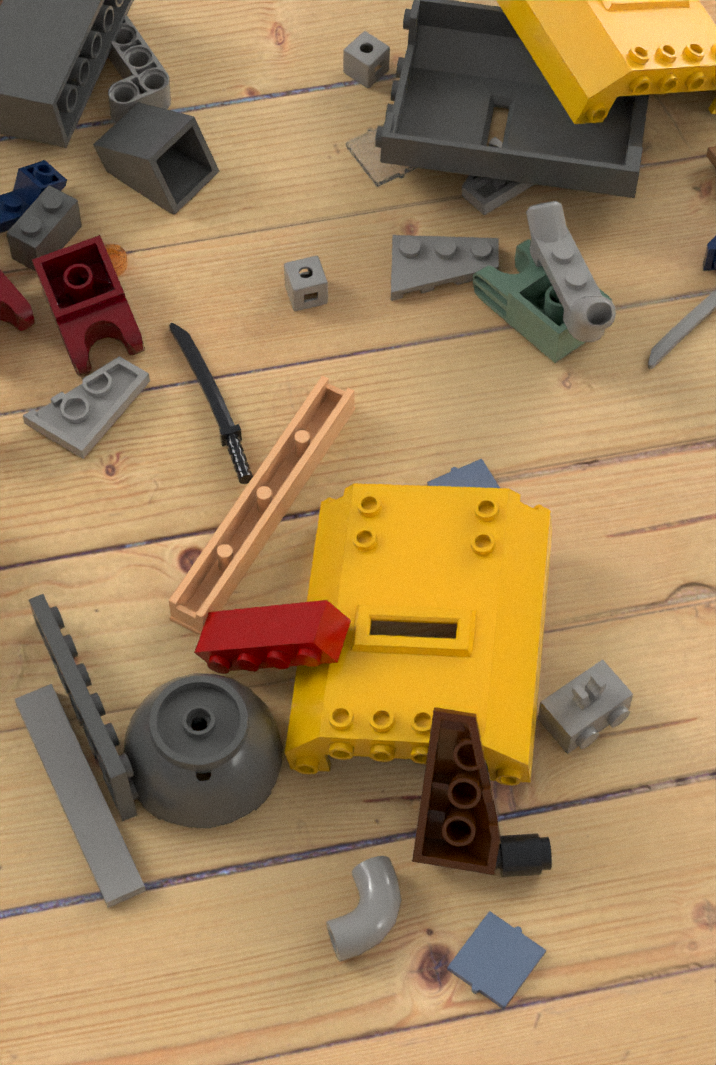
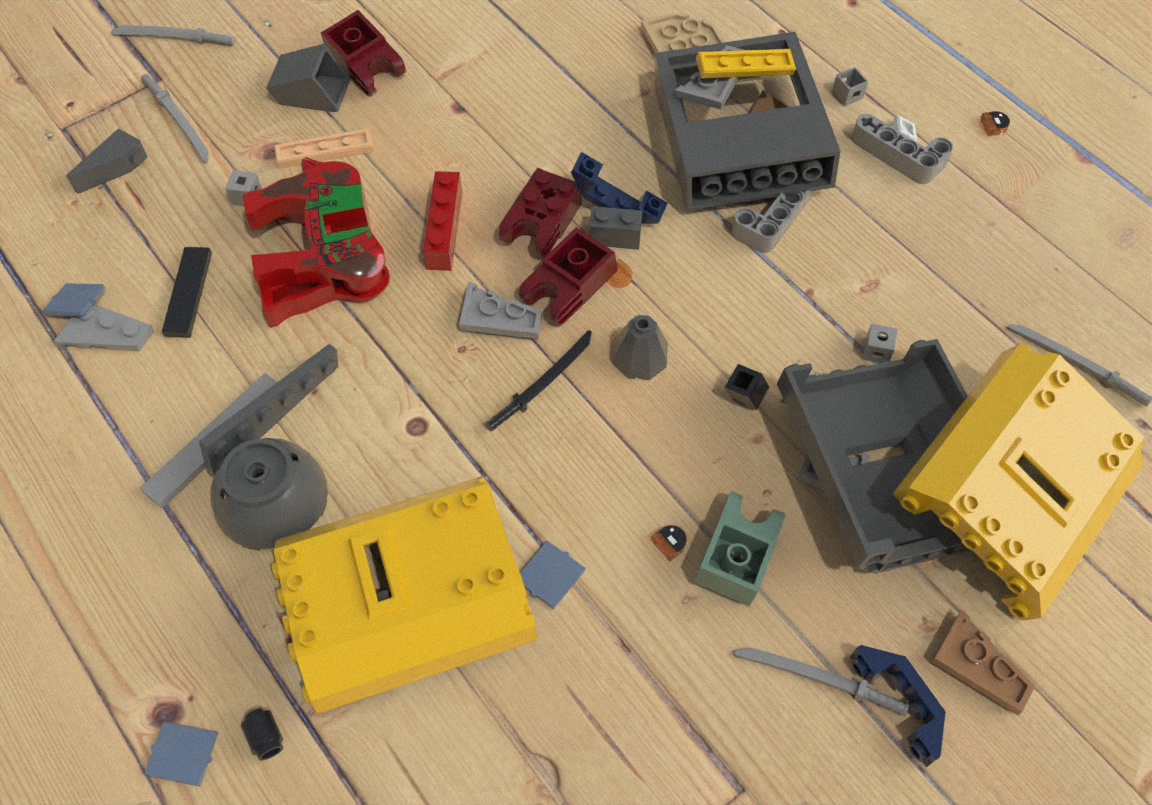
camera: 65 degrees right, 0 degrees up
(158, 155) = (711, 261): dark grey slope -> none
(234, 280) = (640, 349): none -> dark grey cone
(261, 505) = (473, 444): light nougat tile -> none
(273, 637) = (348, 491): red brick -> none
(305, 283) = (667, 397): light grey piece -> none
(351, 201) = (747, 386): none -> black brick
(375, 911) = (179, 653): light grey cylinder -> none
(438, 260) = (739, 467): light grey wing -> none
(457, 803) = (260, 661): reddish brown wedge -> none
(494, 364) = (670, 541): none -> tile
(553, 247) = (753, 547): light grey plate -> none
(585, 707) = (402, 729): light grey brick -> none

